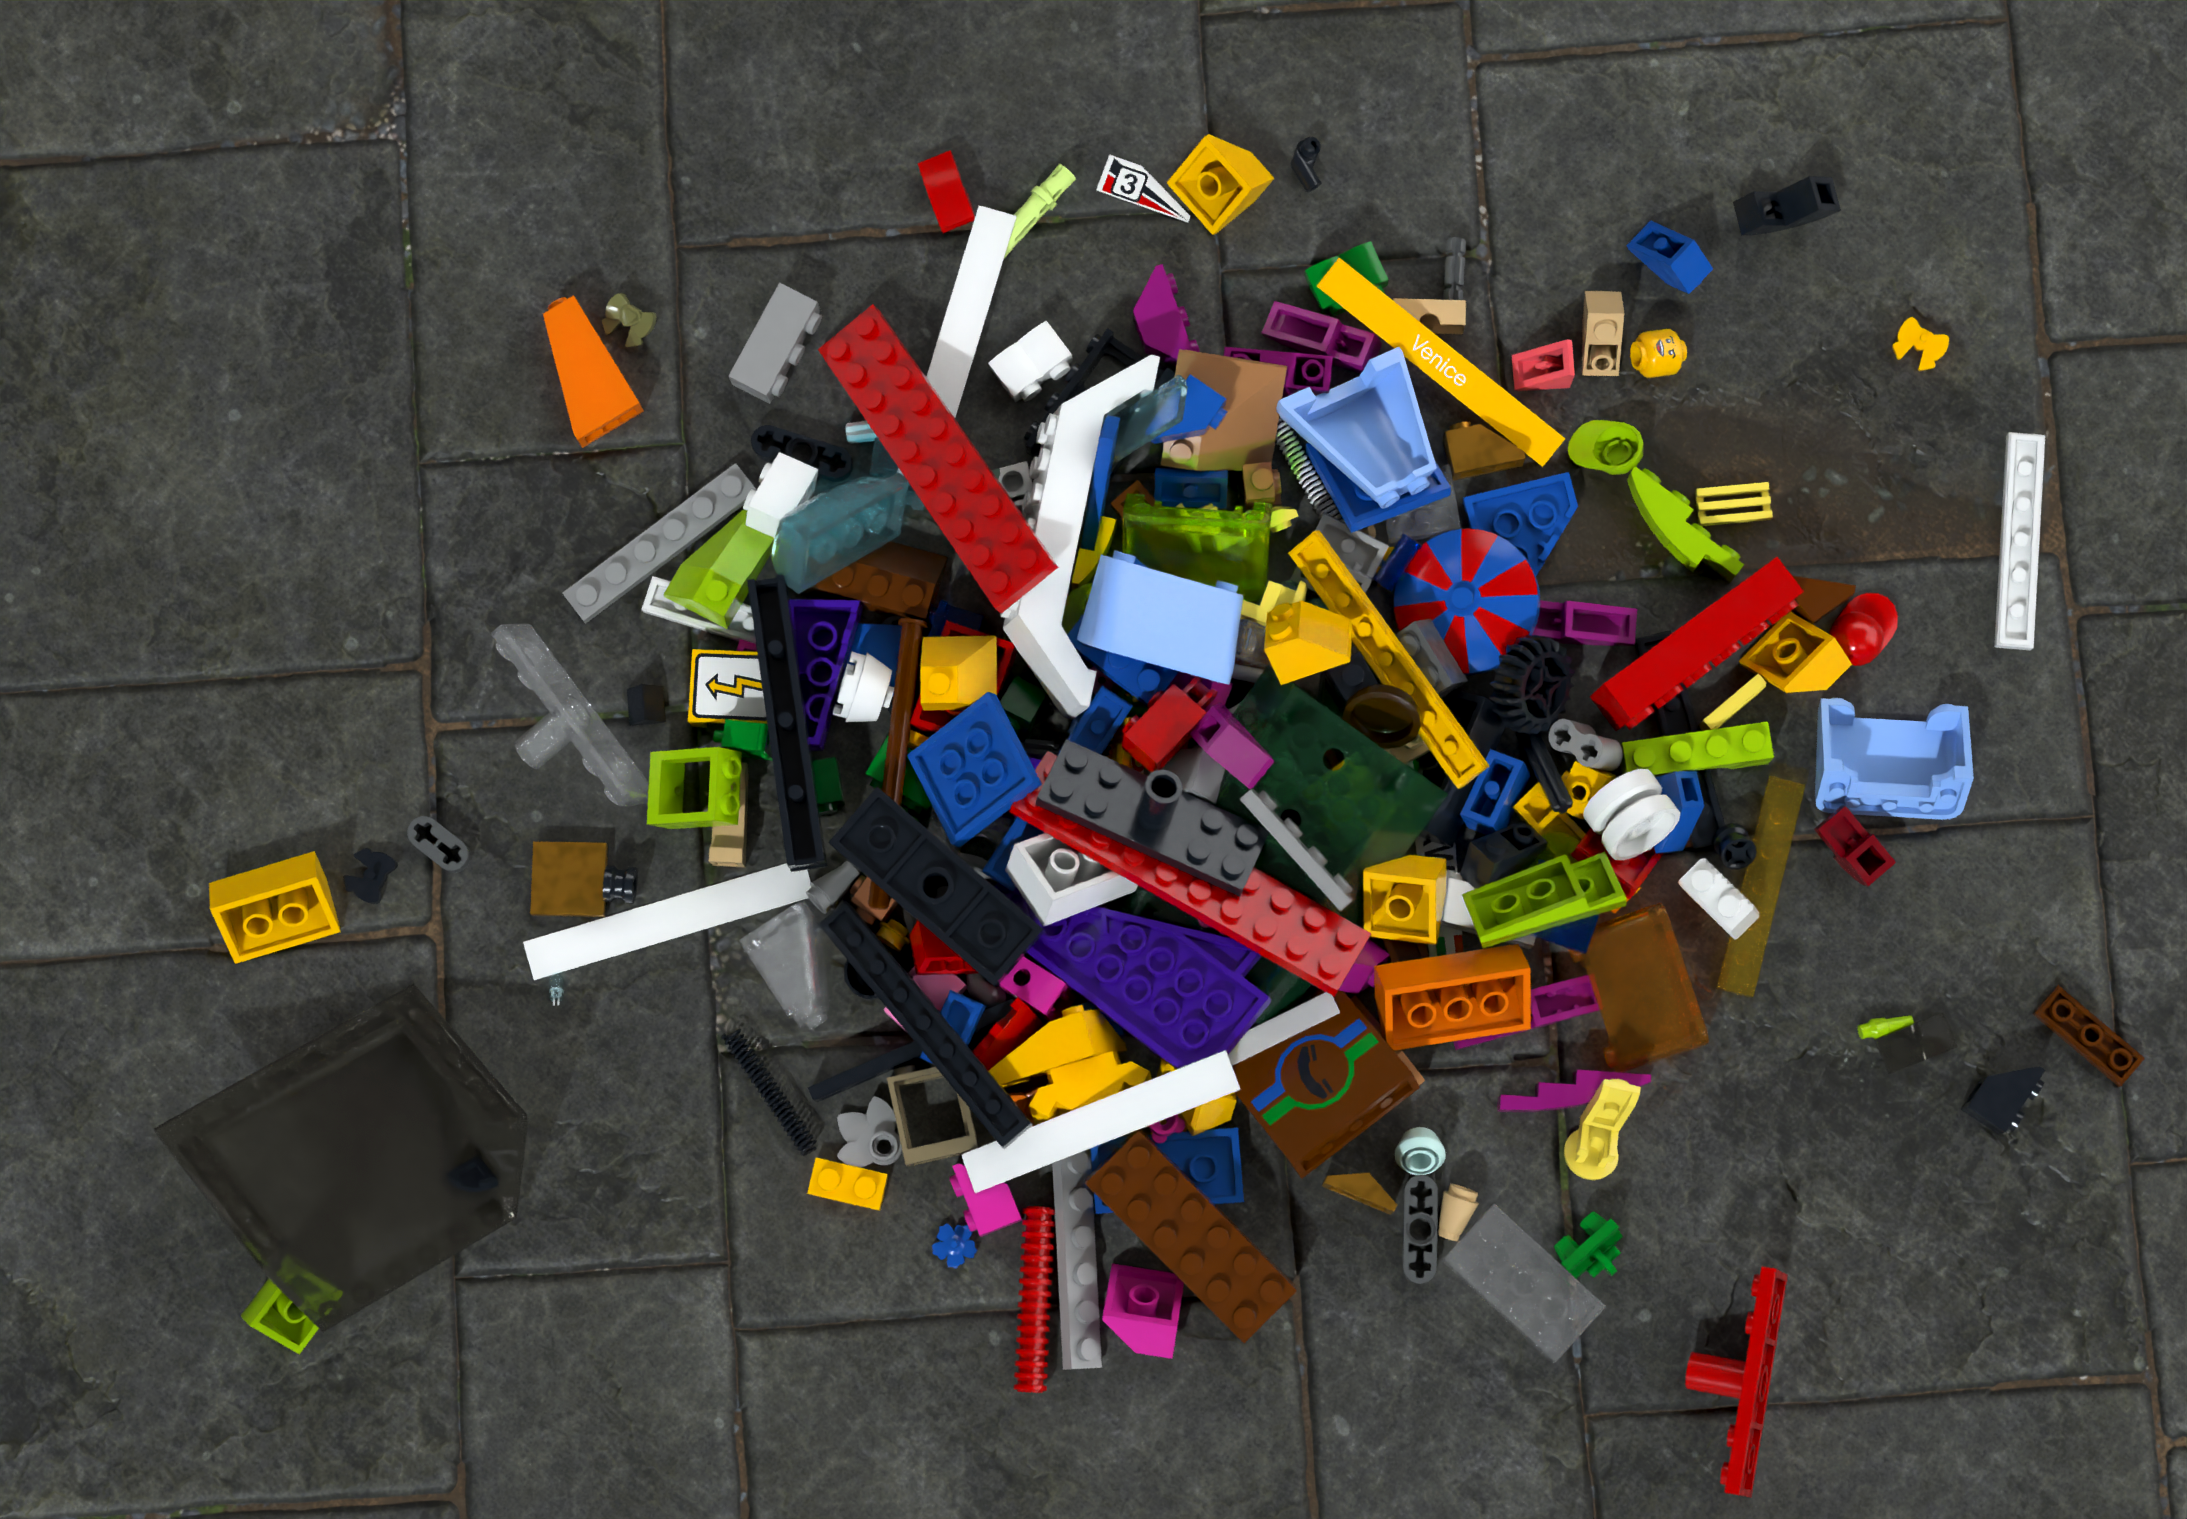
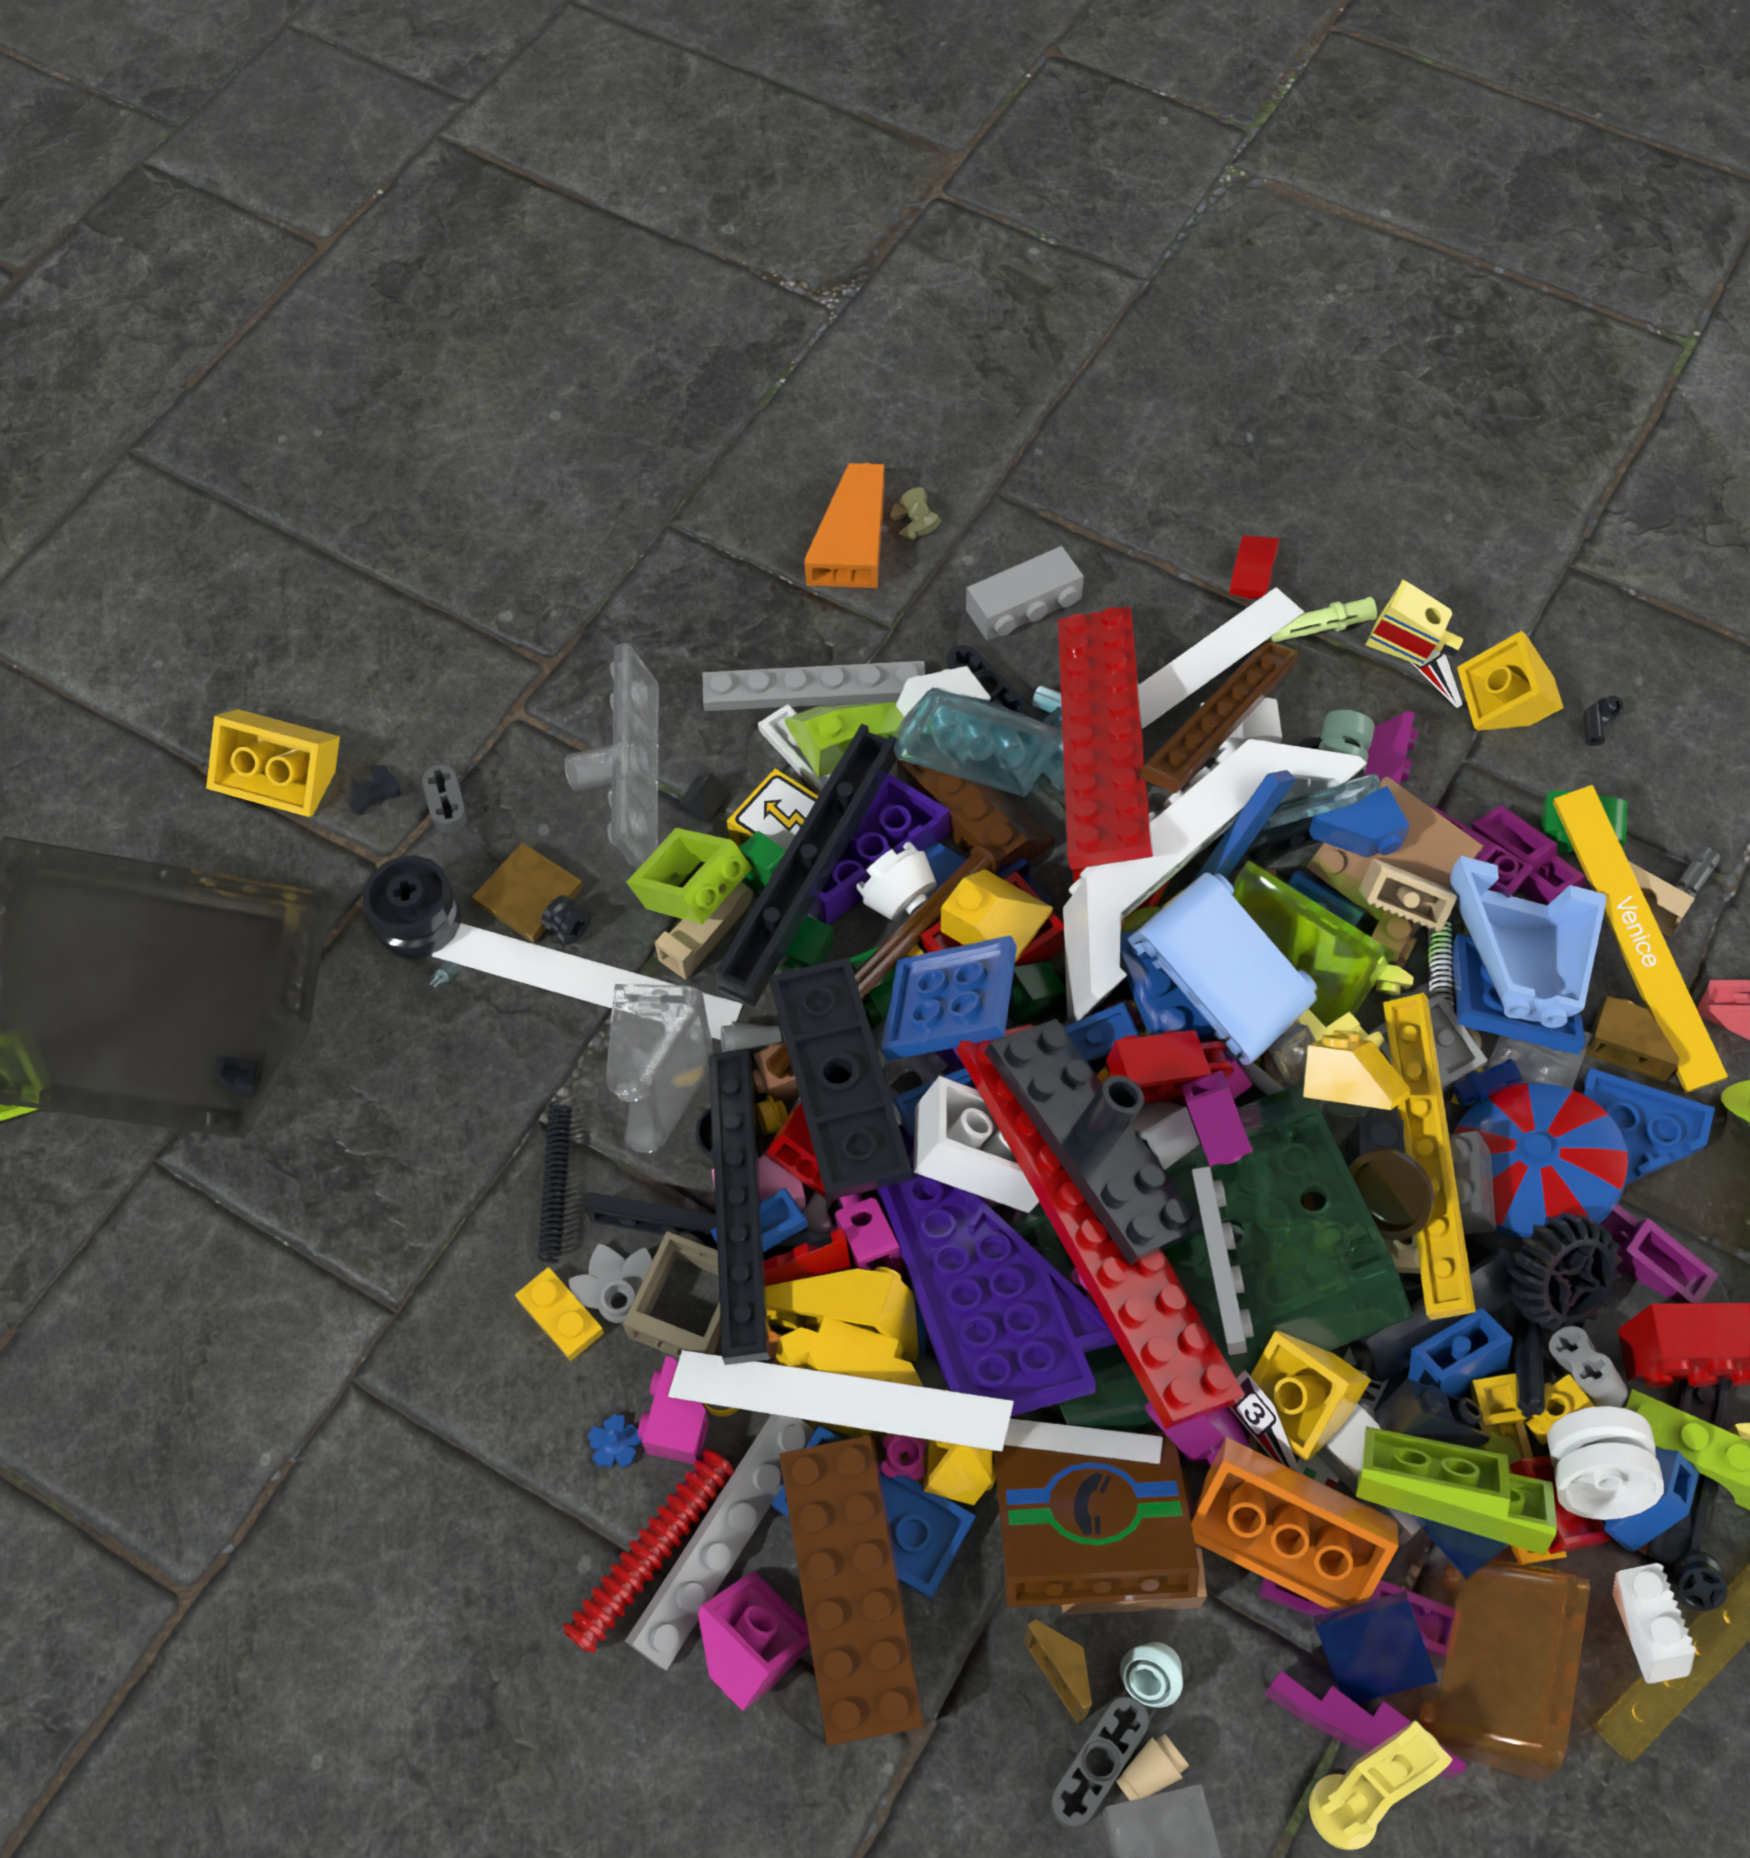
camera: 30 degrees right, 20 degrees down
(473, 951) = (412, 906): none -> black wheel
(1018, 378) = (1219, 717): none -> reddish brown tile
(1114, 176) = (1413, 626): none -> light yellow torso
(1123, 328) = (1348, 734): none -> sand green wheel
(1254, 449) = (1407, 895): none -> tan brick
(1392, 936) = (1263, 1422): none -> sticker
(1552, 1039) = (1375, 1648): none -> clear blue tile

